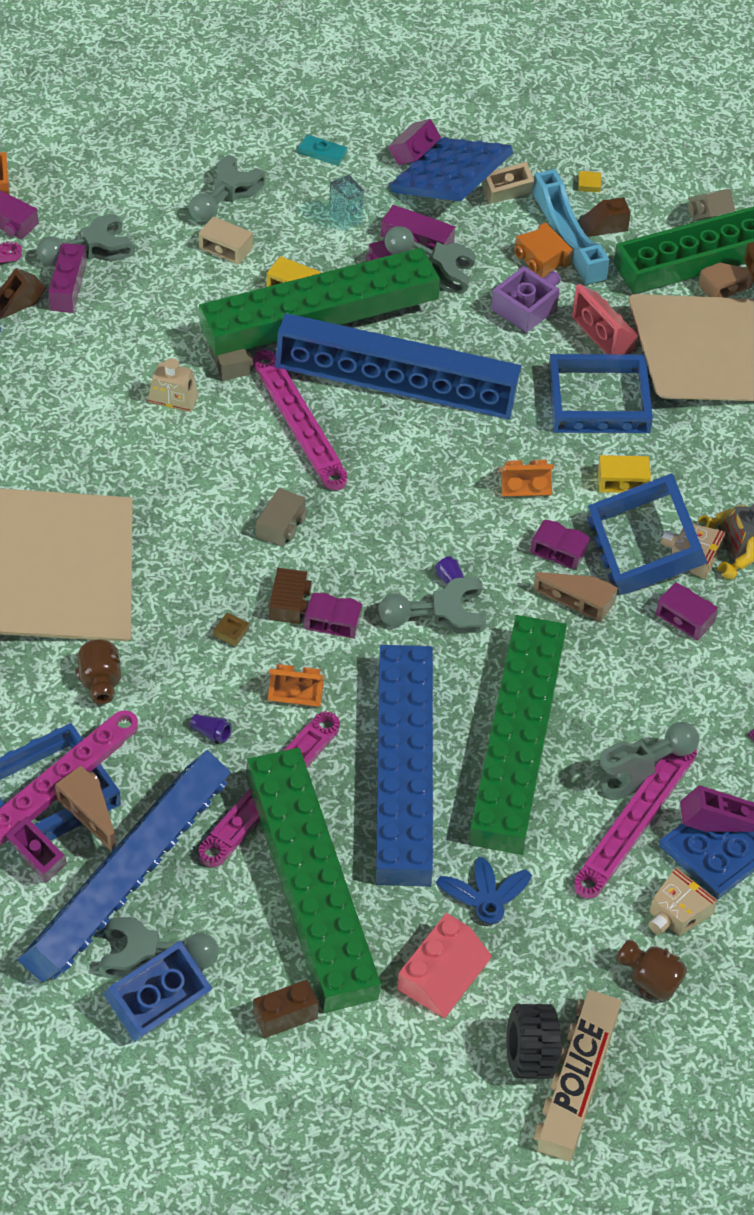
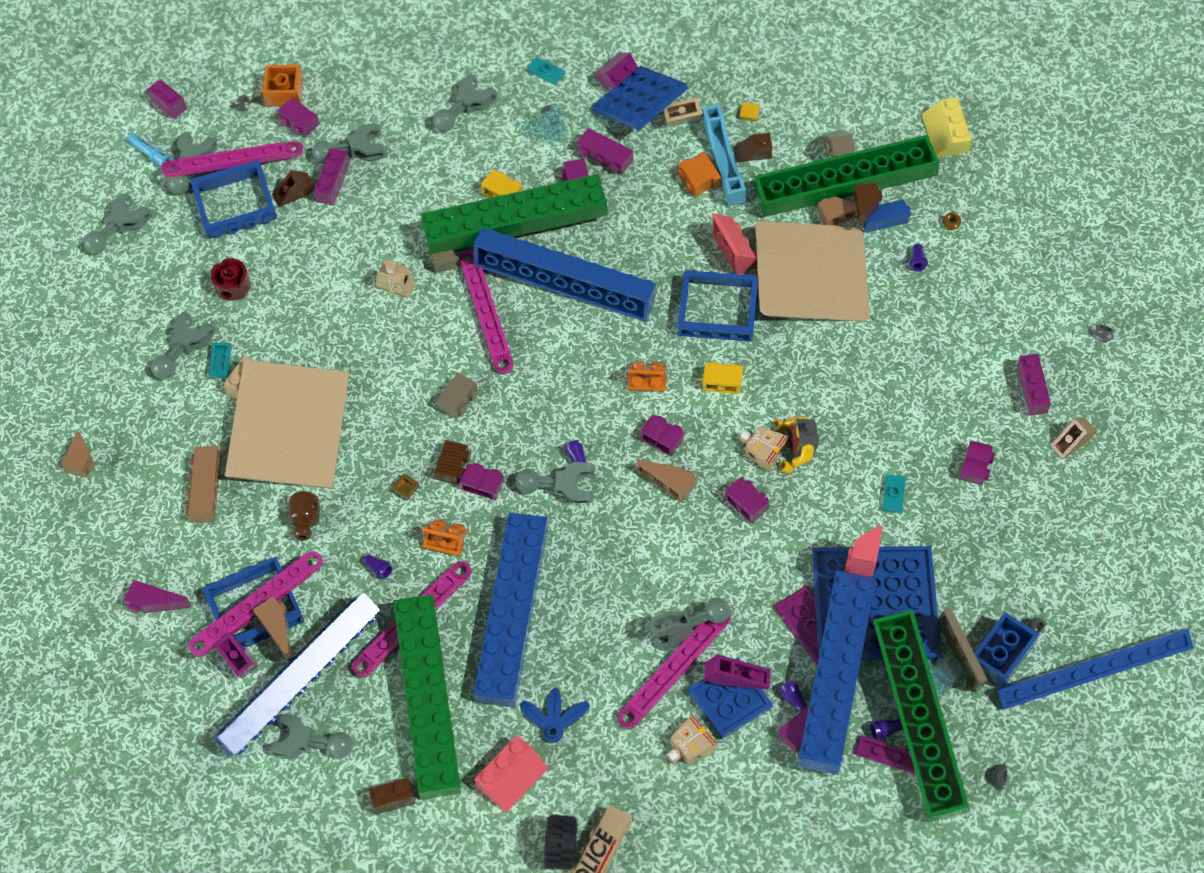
camera: 15 degrees right, 10 degrees up
(157, 991) = (303, 775): blue brick -> none
(226, 240) = (456, 149): tan brick -> none
(444, 258) = (616, 179): sand green piece -> none
(518, 735) = (599, 592): green brick -> none
(526, 298) = (677, 217): medium lavender brick -> none
(655, 971) = (661, 793): reddish brown piece -> none
(661, 568) = (735, 464): blue window -> none

